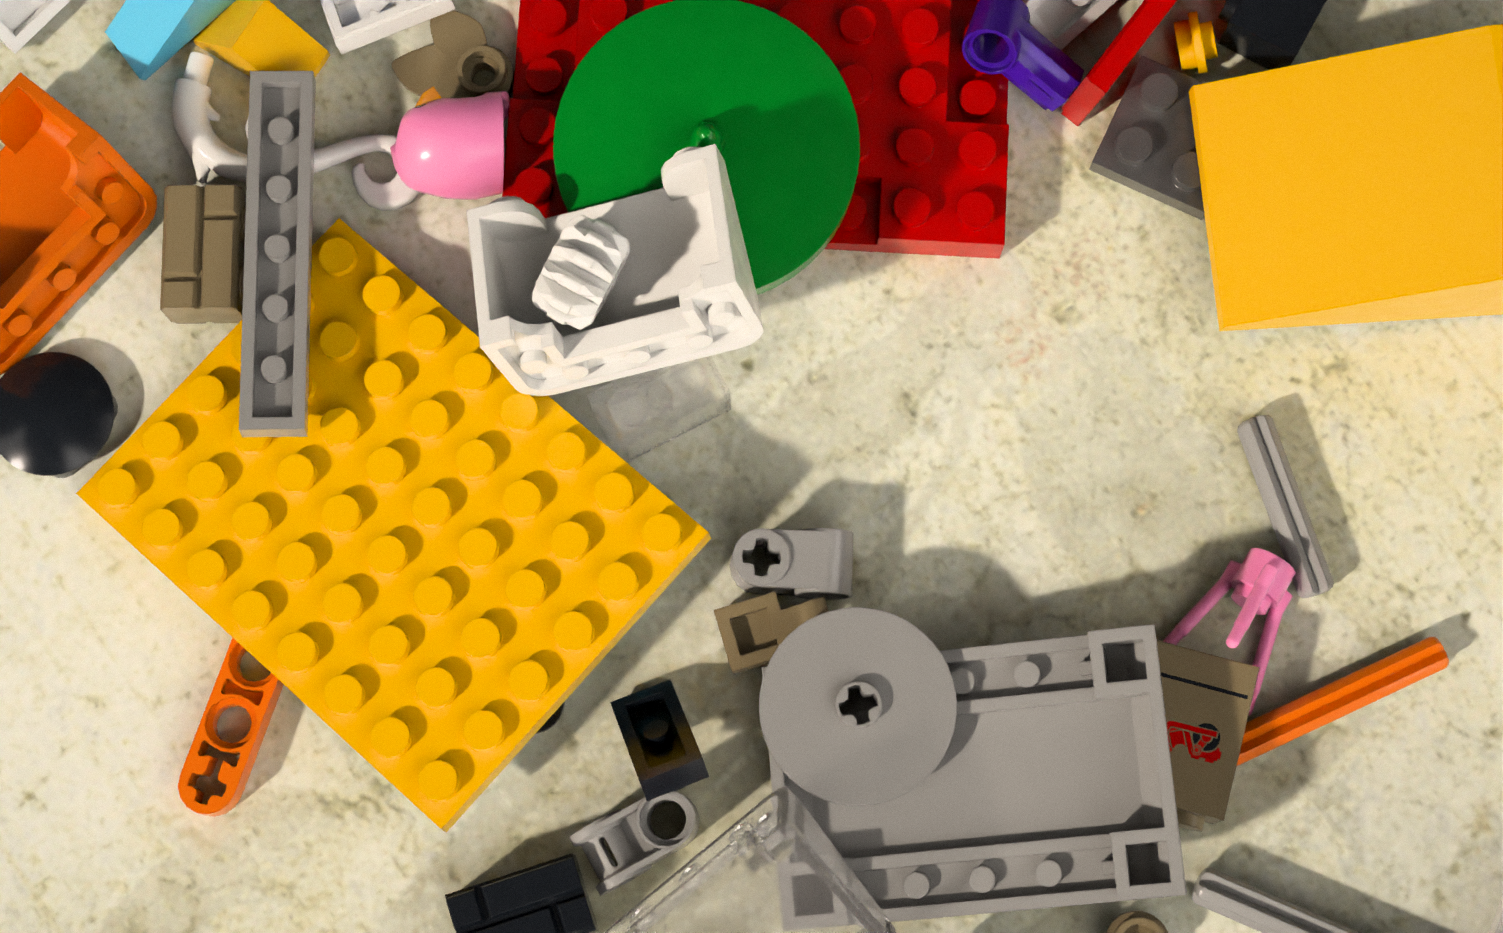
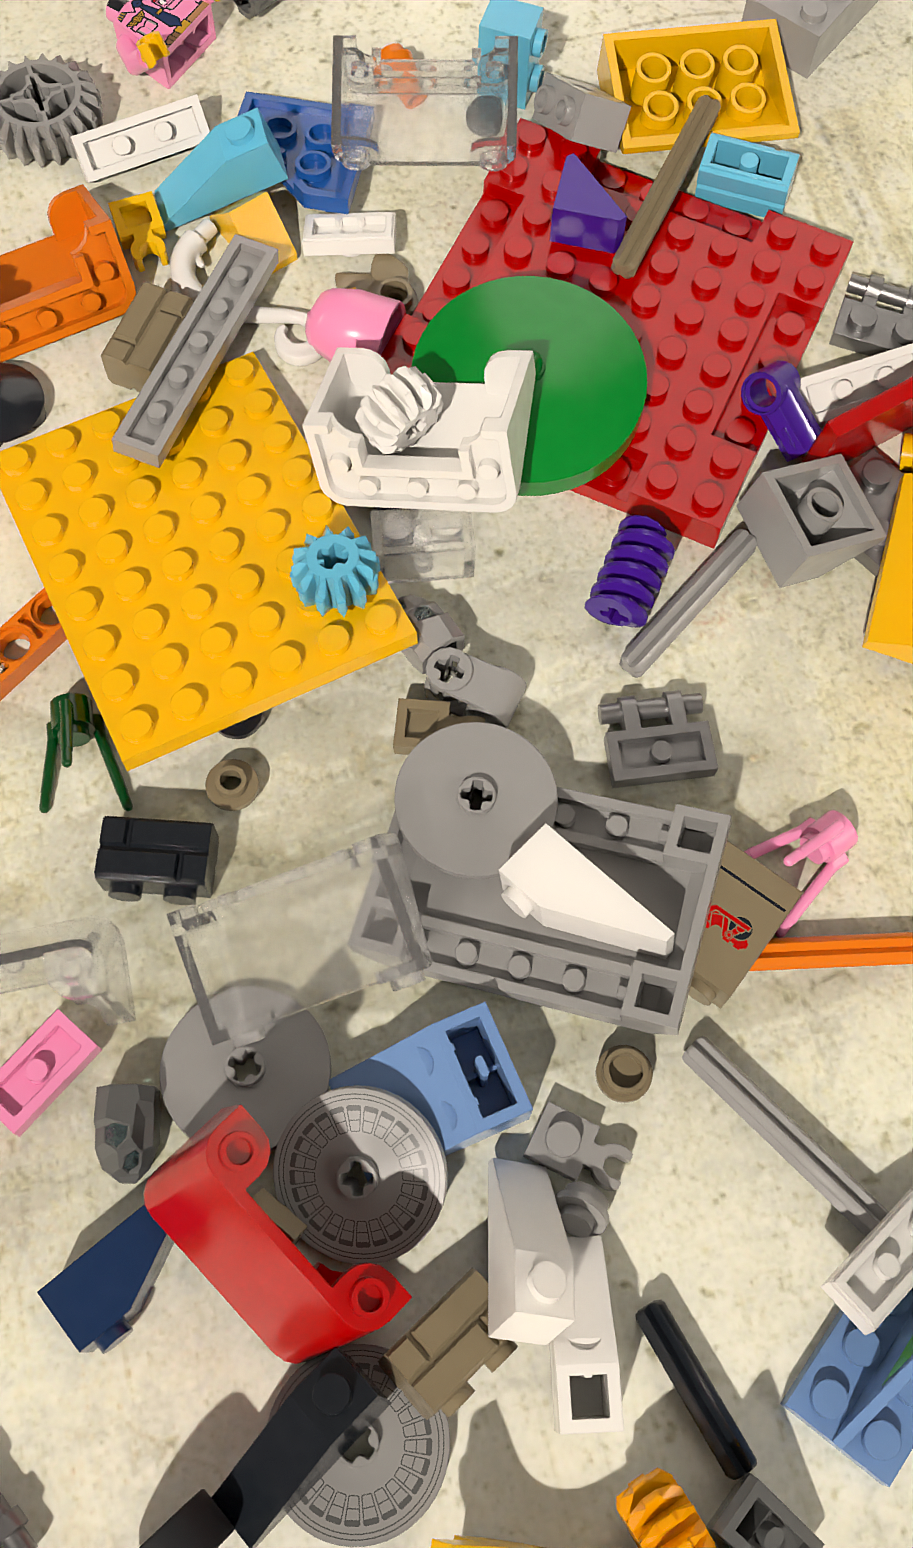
camera: 20 degrees right, 10 degrees down
(113, 94) = (140, 227): none -> yellow plate
(347, 792) = (71, 727): none -> dark green plant
(586, 790) = (236, 798): none -> dark tan plate
(607, 514) = (335, 571): none -> medium azure gear
(632, 840) = (265, 835): light grey piece -> none
(659, 740) = (315, 770): black plate -> none
(712, 504) = (433, 630): none -> light grey rock
(918, 342) = (631, 573): none -> dark purple piece
(998, 346) = (688, 603): none -> light grey axle
(1009, 782) = (576, 897): none -> white slope
(1036, 553) = (657, 752): none -> flat silver plate
(1103, 188) = (809, 519): none -> light grey slope
(1285, 506) = (867, 794): light grey axle -> none

